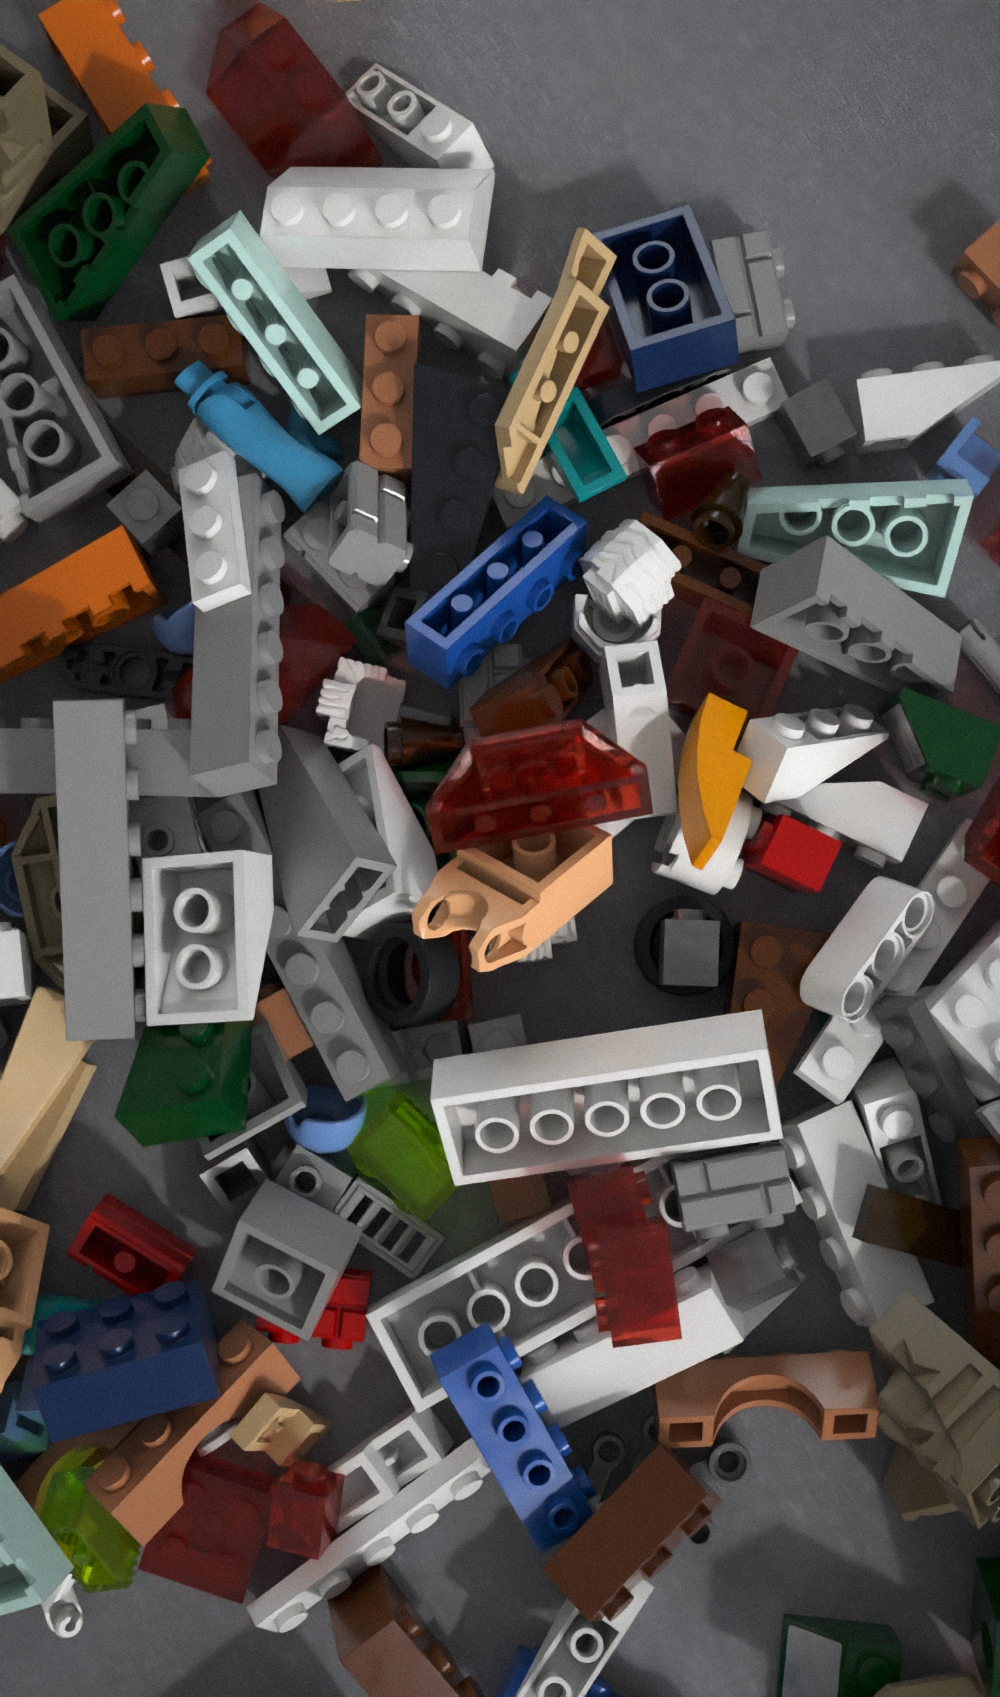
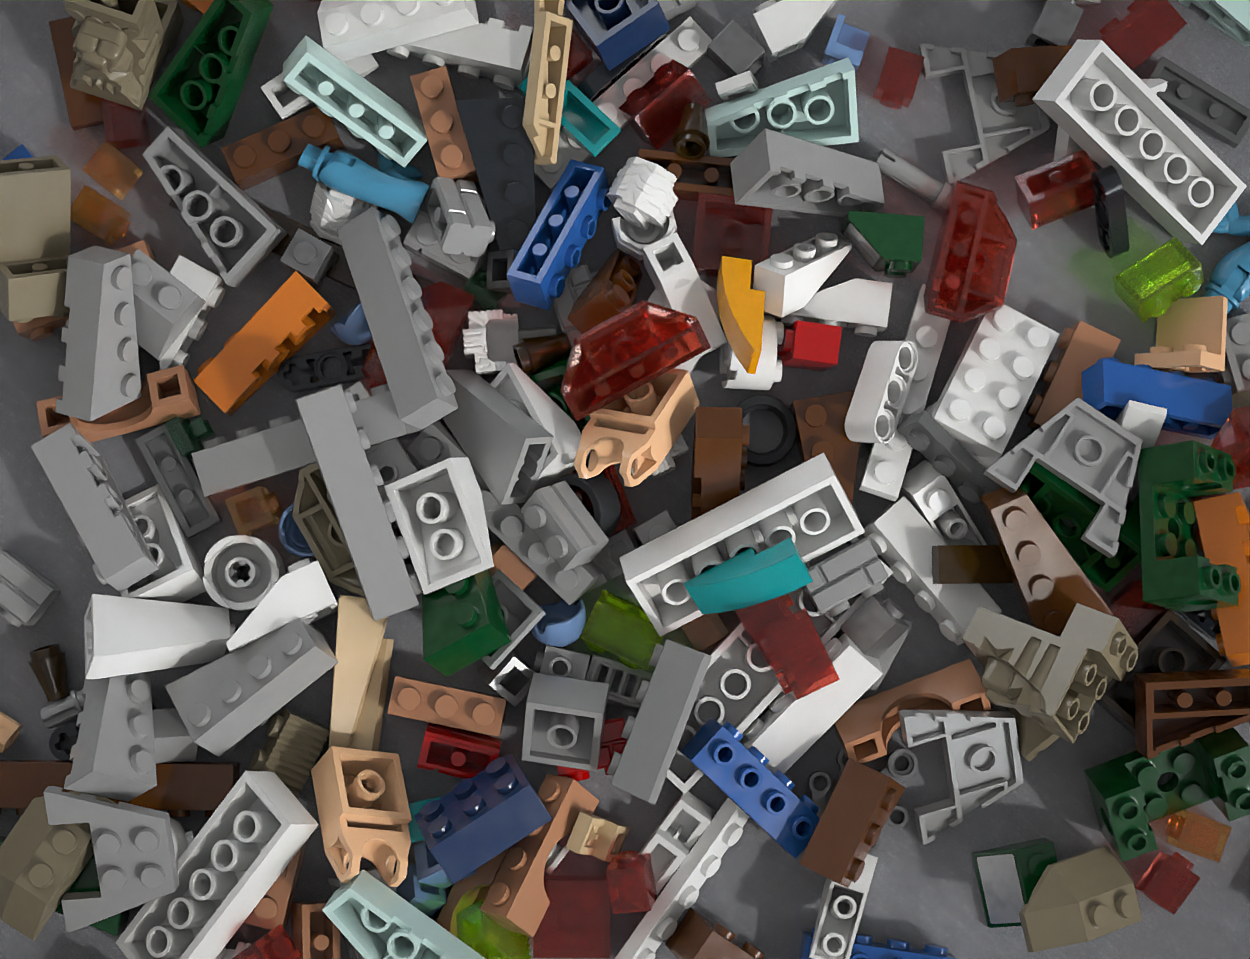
camera: 20 degrees left, 0 degrees up
(137, 1180) = (447, 705): none -> nougat brick
(214, 531) = (358, 255): white plate -> none
(371, 992) = (563, 525): none -> light grey brick
(414, 1307) = (660, 720): none -> light grey slope
(603, 1152) = (750, 579): none -> teal slope
(613, 967) = (717, 457): none -> reddish brown wedge
(689, 949) = (767, 431): flat silver brick -> none
(803, 470) = (737, 86): none -> white tile
(836, 1493) = (978, 757): none -> light grey wing

